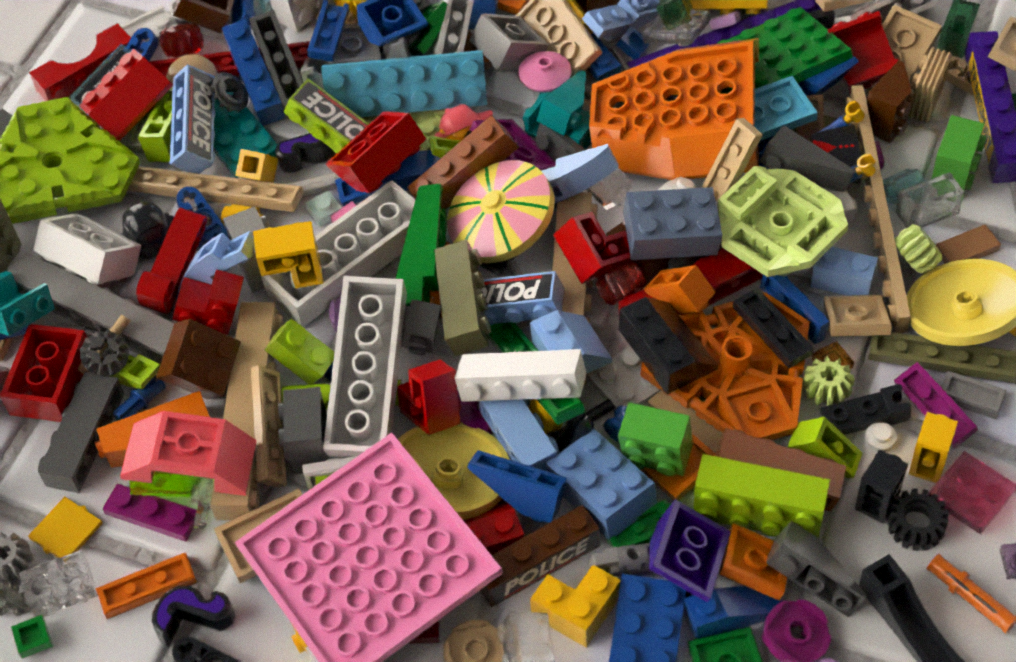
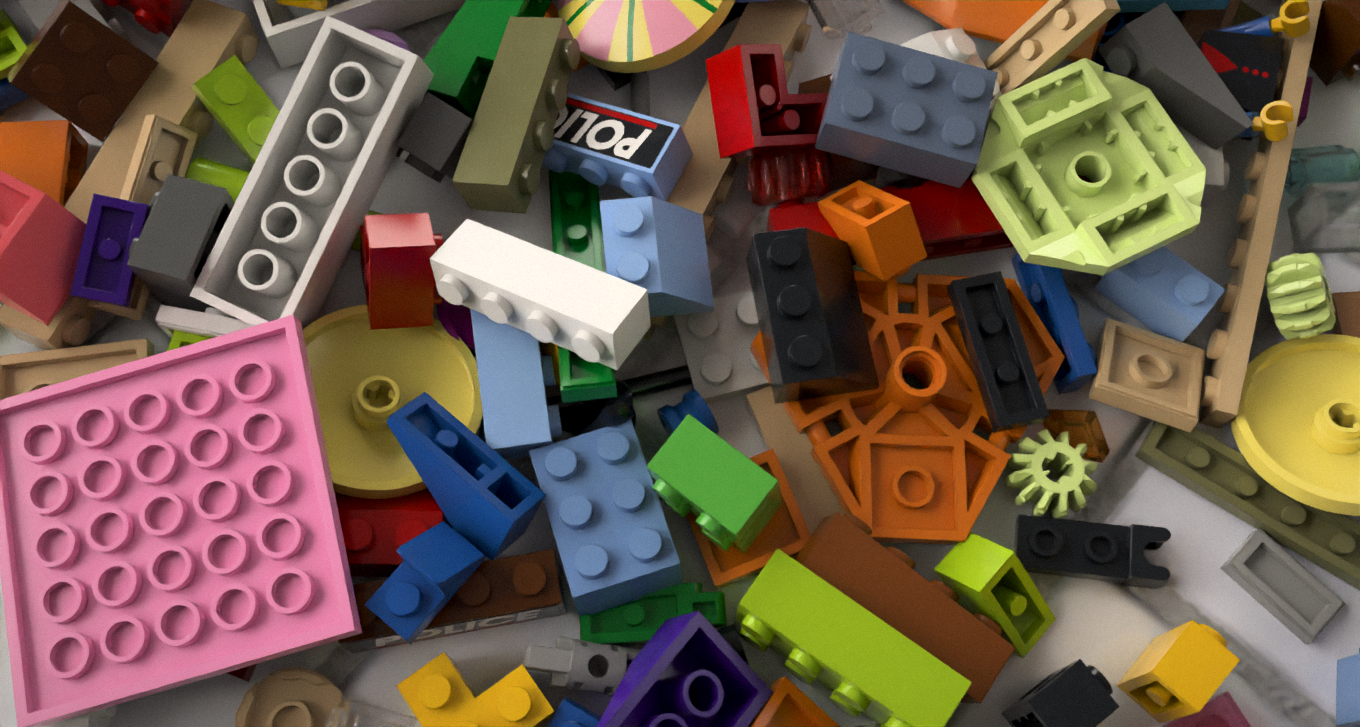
camera: 15 degrees right, 15 degrees up
(266, 449) = (104, 252): none -> dark purple plate
(523, 540) = (425, 581): none -> blue slope
(880, 436) = (1098, 604): white plate -> none
(931, 398) = (1213, 578): magenta plate -> none

